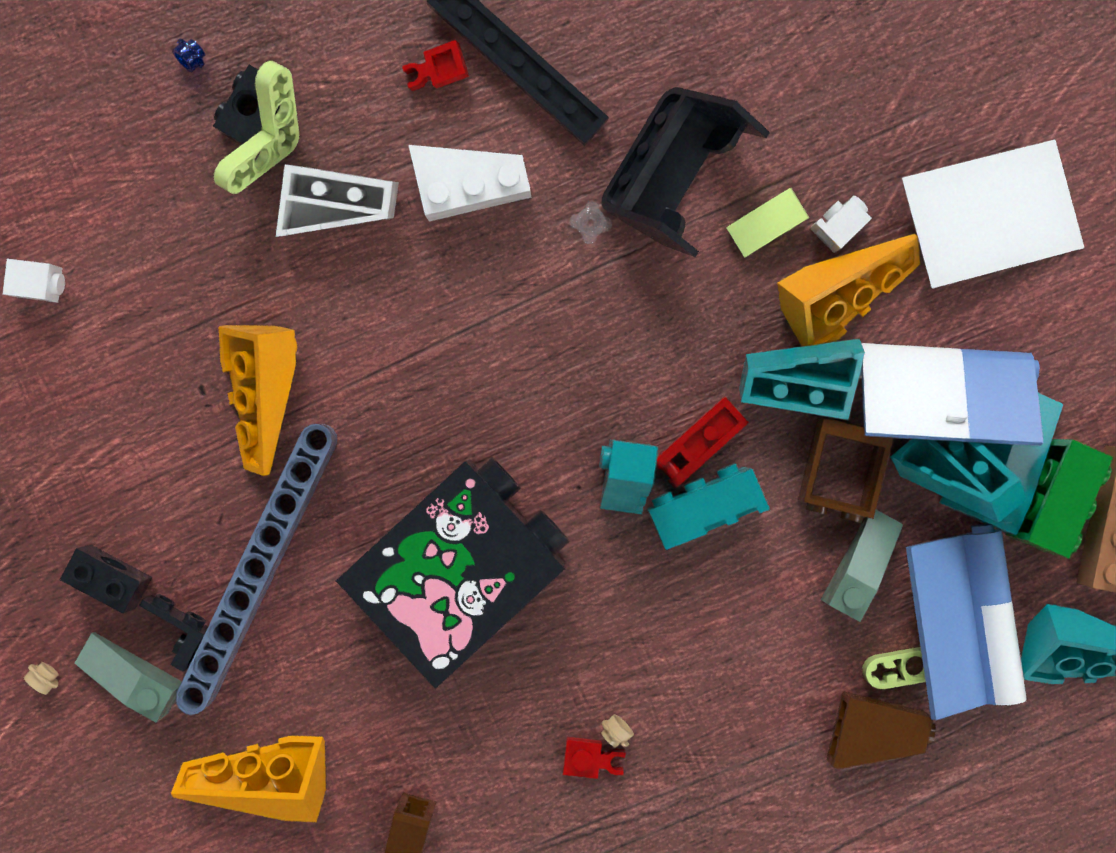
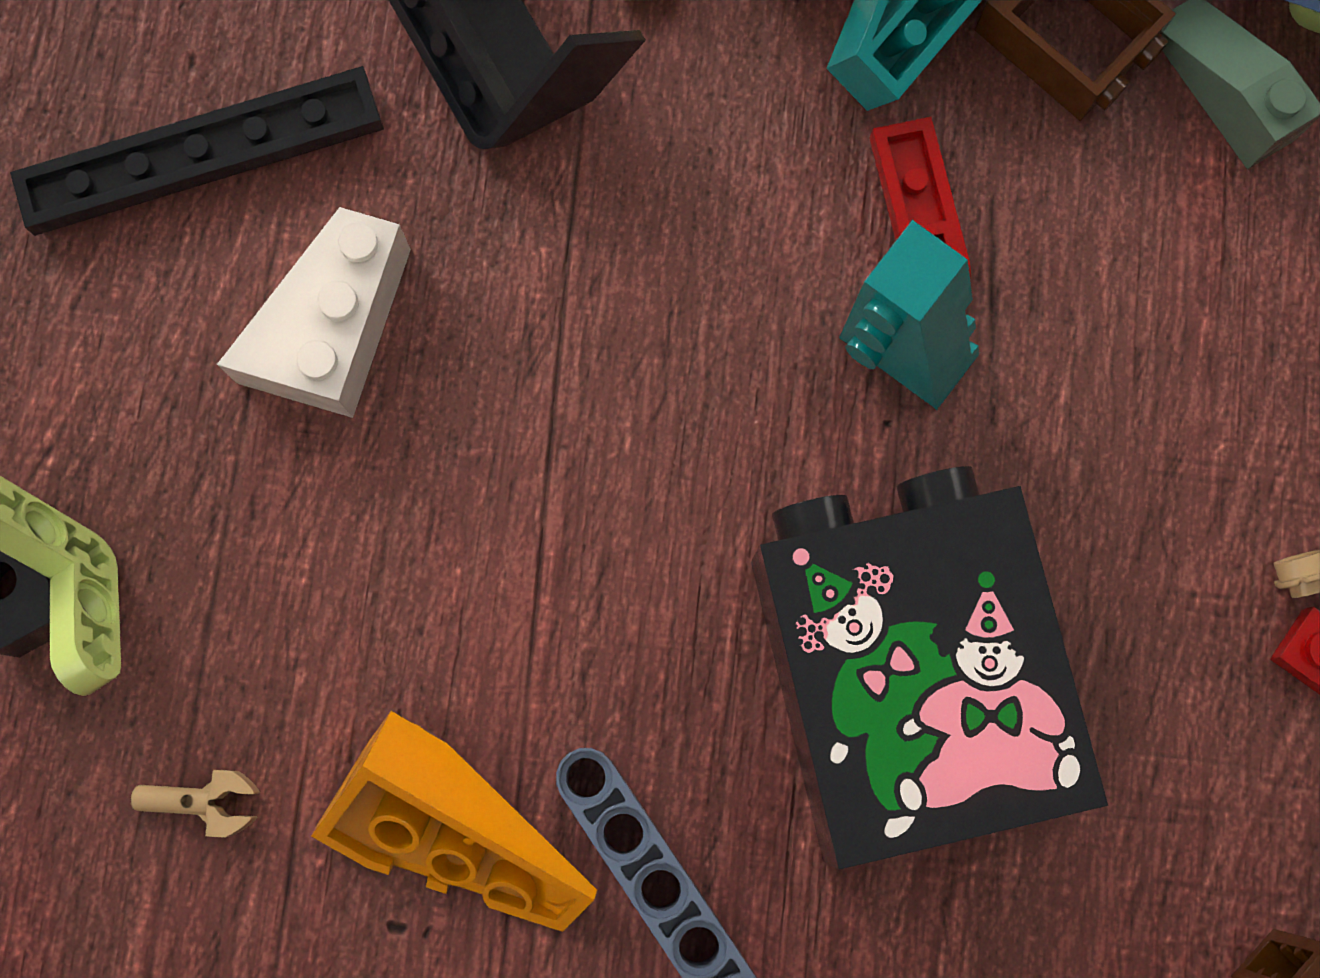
camera: 60 degrees left, 10 degrees down
(204, 264) = (199, 801): none -> tan bar
(330, 199) = (226, 534): white wedge -> none
(442, 66) = (134, 259): red plate -> none
(591, 212) = (500, 165): clear plate -> none
(706, 505) = (1026, 236): teal wedge -> none

